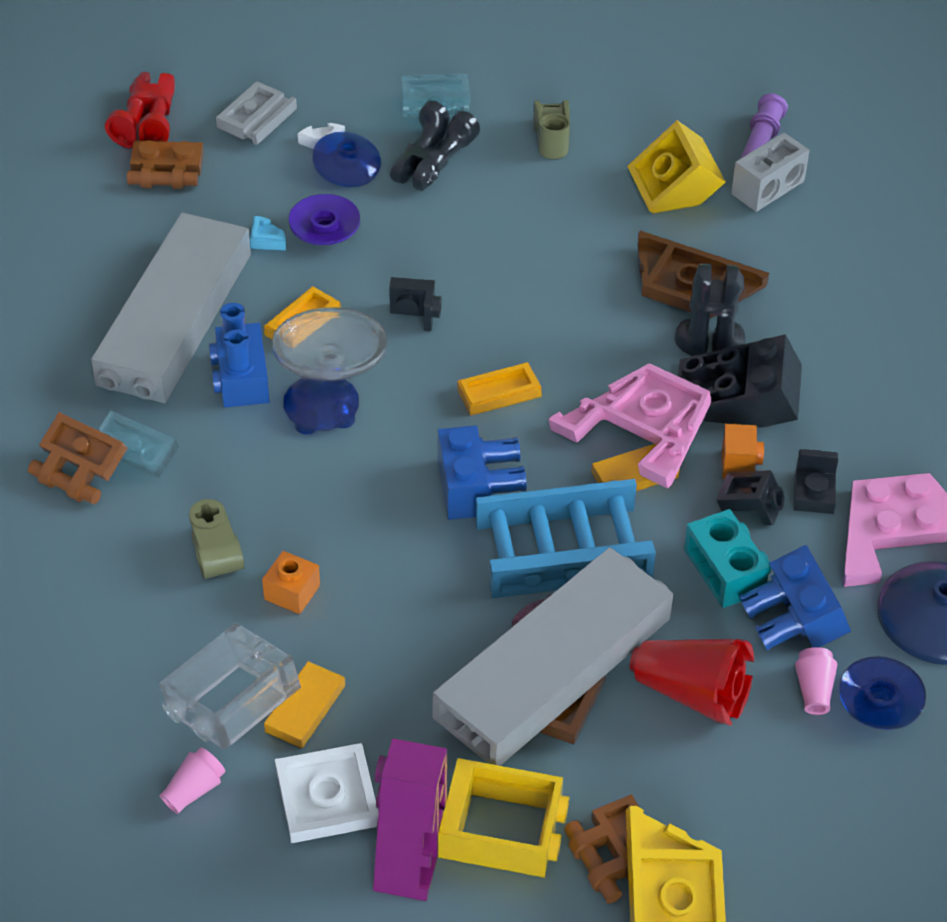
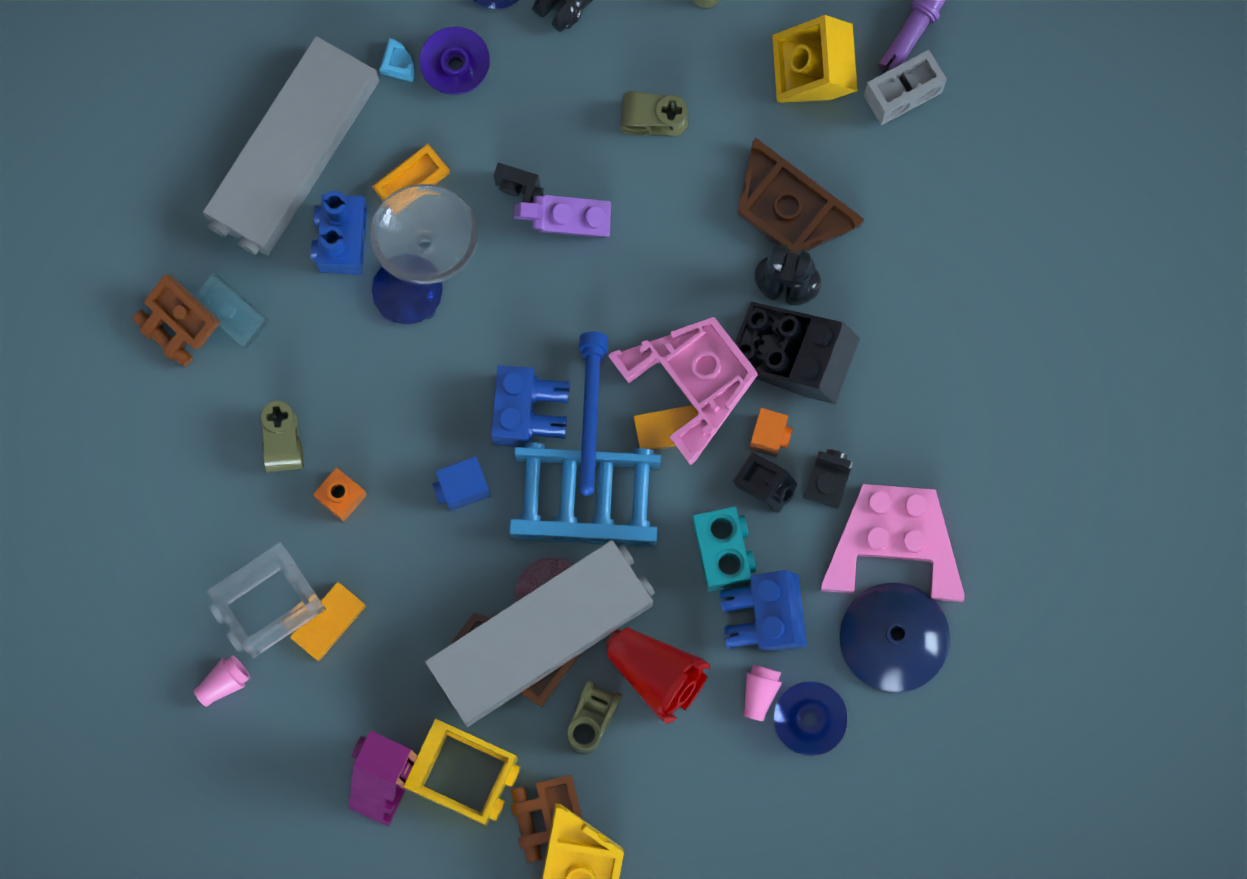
camera: 15 degrees right, 30 degrees up
(326, 793) = (326, 715): white plate -> none
(425, 548) = (461, 484): none -> blue brick
(470, 311) = (567, 215): none -> medium lavender hinge
(499, 388) = (574, 304): light orange tile -> none
(532, 232) = (649, 114): none -> olive piece
(532, 415) = (593, 348): none -> blue piece
(635, 741) = (592, 715): none -> olive piece

